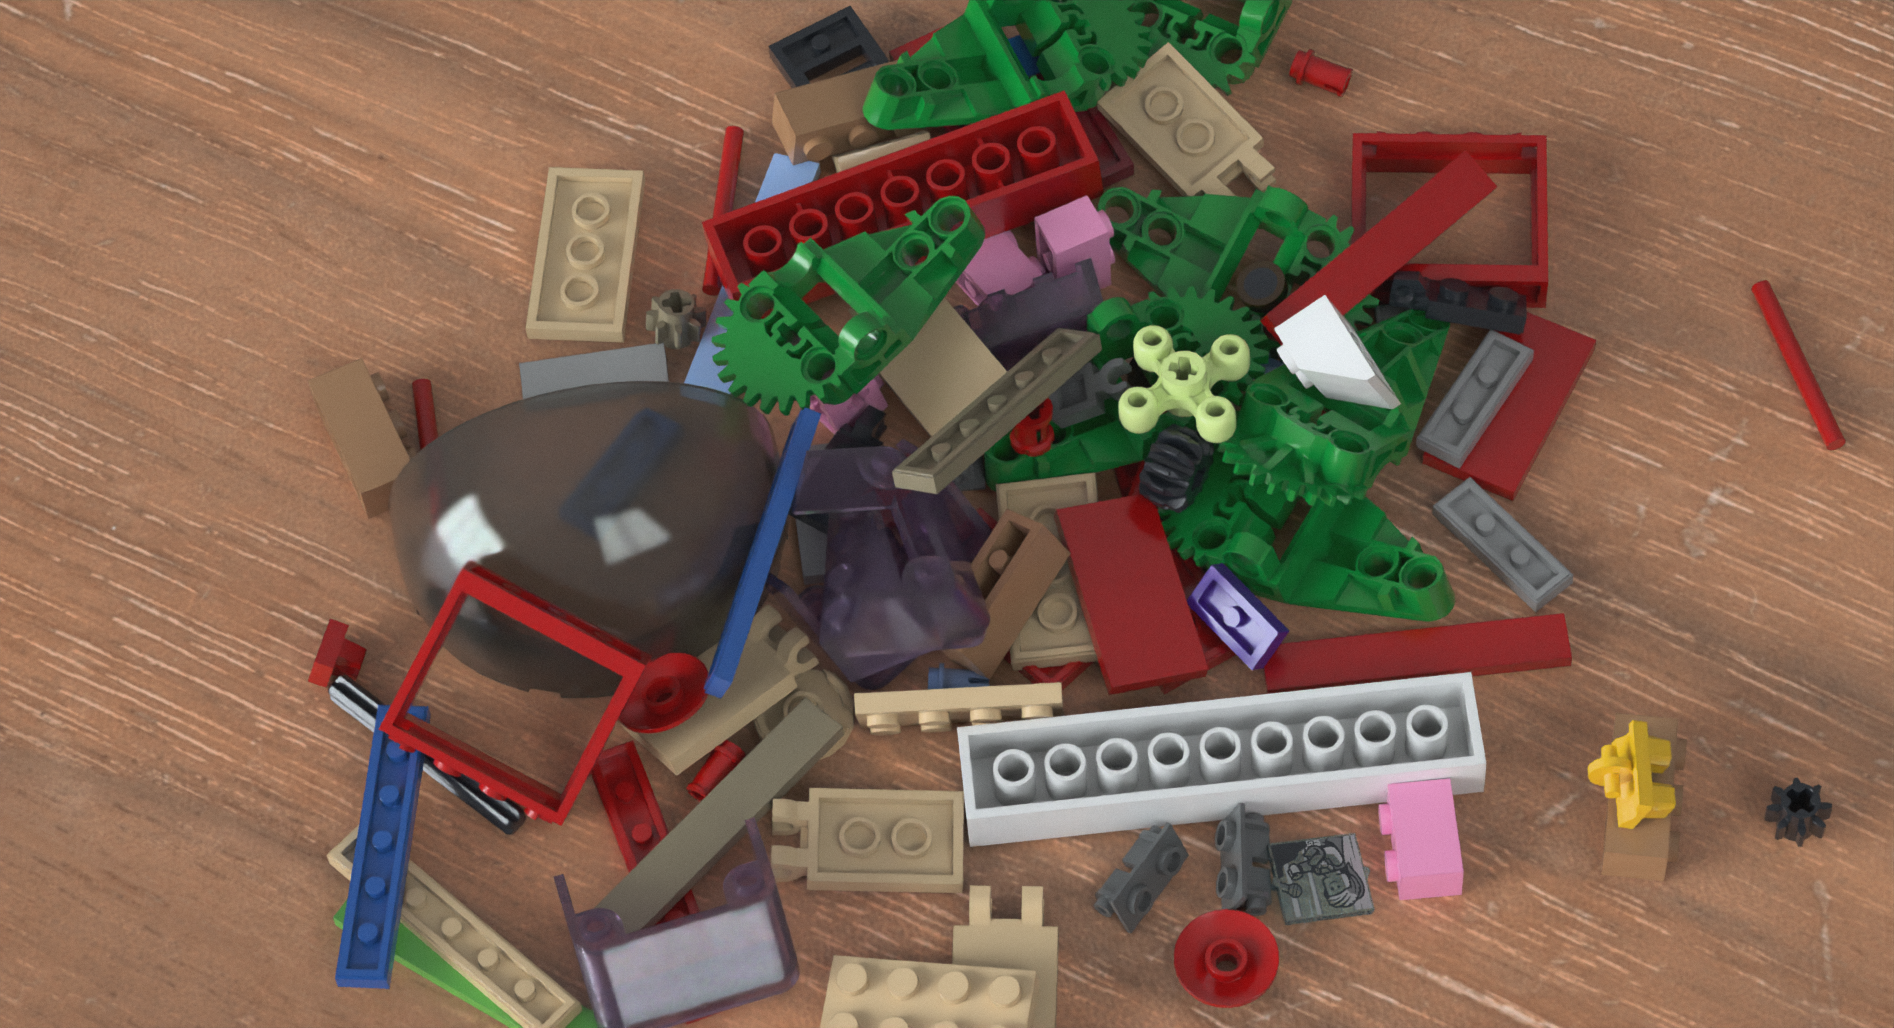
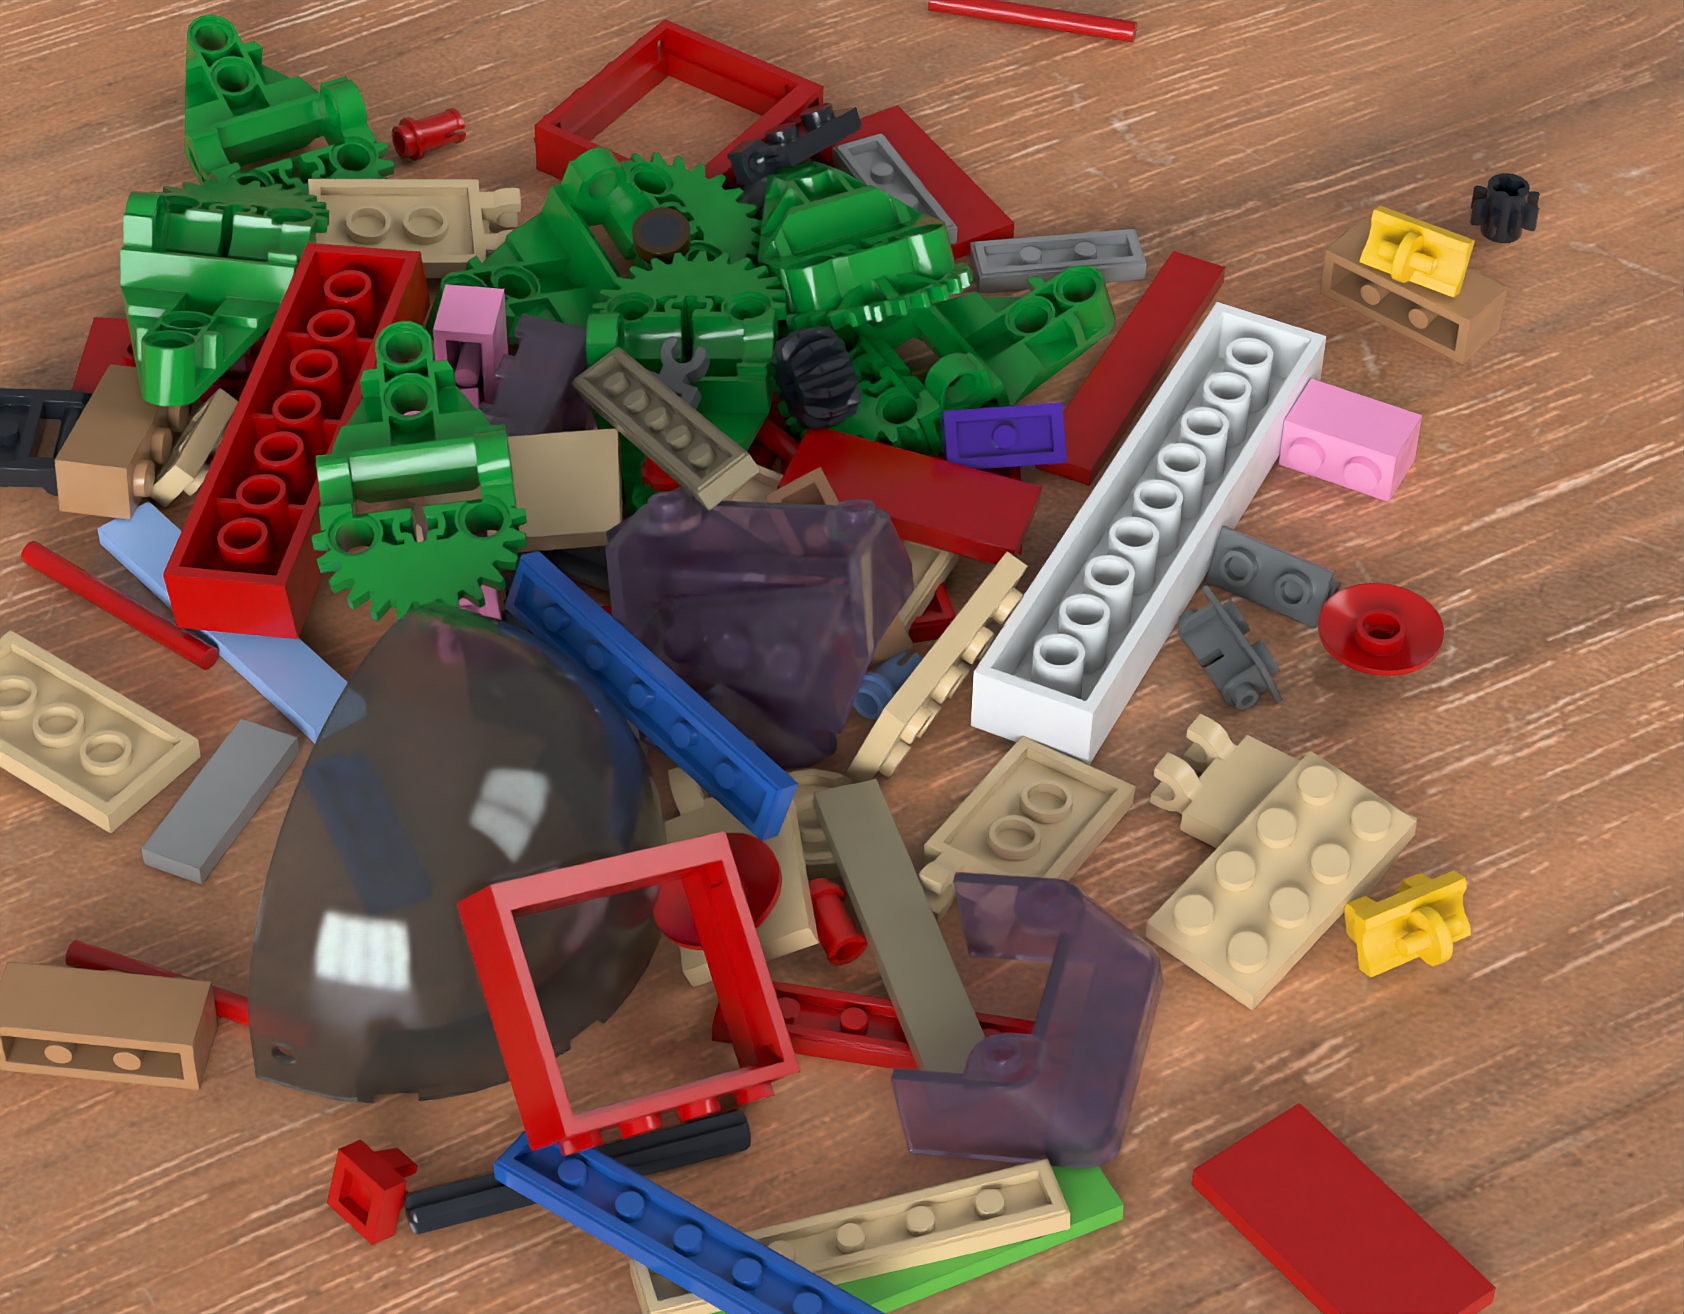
camera: 65 degrees left, 15 degrees down
(675, 319) = (226, 689): dark tan gear -> none
(1184, 384) = (749, 302): yellowish green gear -> none
(1320, 879) = (1333, 533): piece -> none
(1329, 354) = (838, 178): white slope -> none
(1391, 241) = (703, 154): red tile -> none

